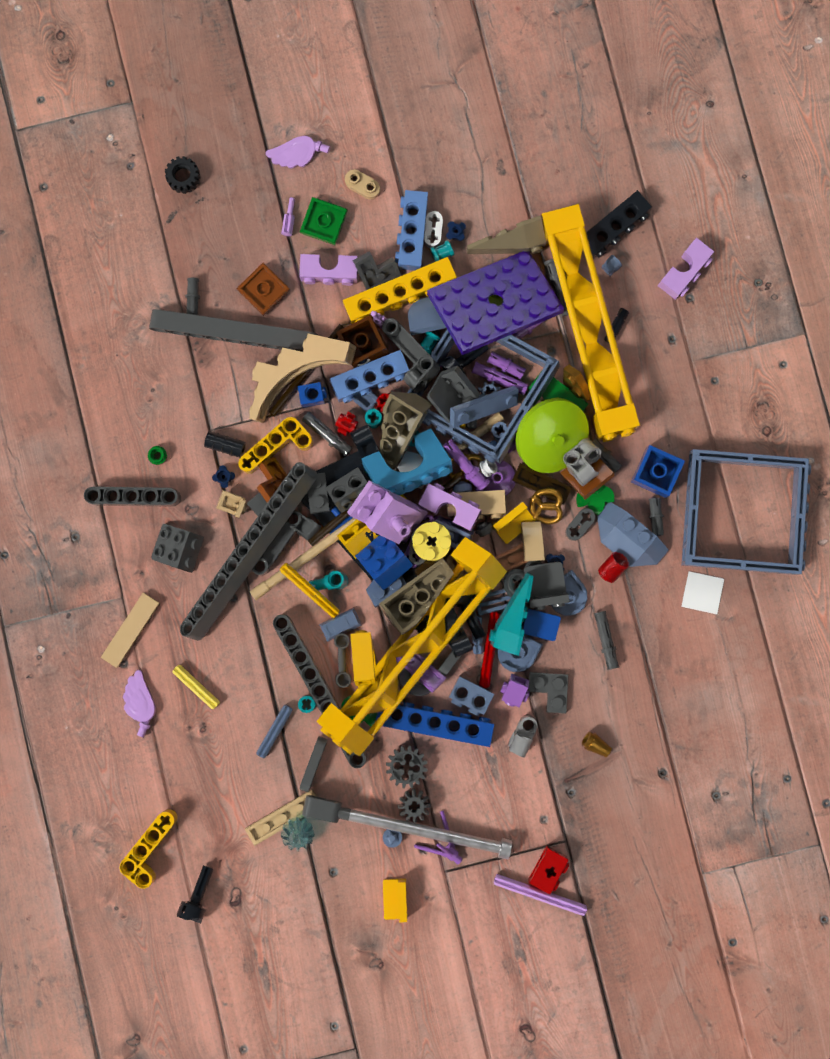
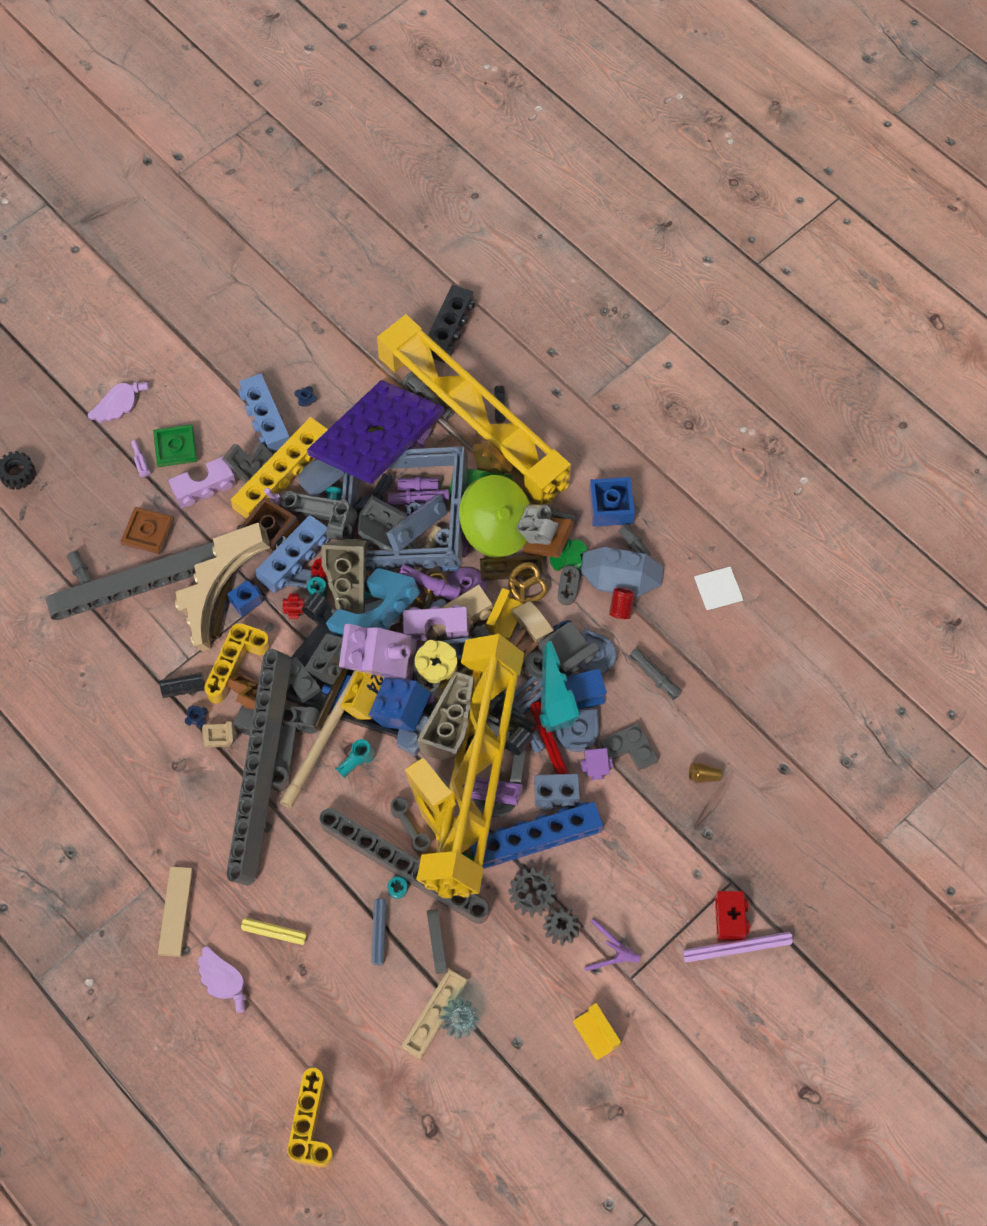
camera: 35 degrees left, 20 degrees down
(123, 496) = (101, 779): dark grey beam -> none
(151, 455) = (115, 725): green plate -> none
(177, 548) = (184, 803): dark grey bracket -> none
(192, 908) = (388, 1157): black piece -> none
(309, 590) = (340, 771): yellow axle -> none
(332, 438) = (286, 627): dark grey pin -> none
(332, 811) = (481, 974): flat silver piece -> none
(340, 624) = (393, 788): sand blue tile -> none
(361, 184) = (194, 399): tan plate -> none
(392, 838) = (557, 971): sand blue tile -> none
(428, 229) = (286, 404): white beam -> none
(442, 251) = (302, 416): teal bush -> none
(488, 468) = (452, 575): white bush -> none
(521, 737) = (629, 802): light grey piece -> none
(527, 236) = (371, 369): dark tan wedge -> none
(611, 265) = (465, 356): sand blue hose -> none
(696, 256) = (532, 341): lavender arch -> none
(799, 509) = (758, 468): sand blue window -> none

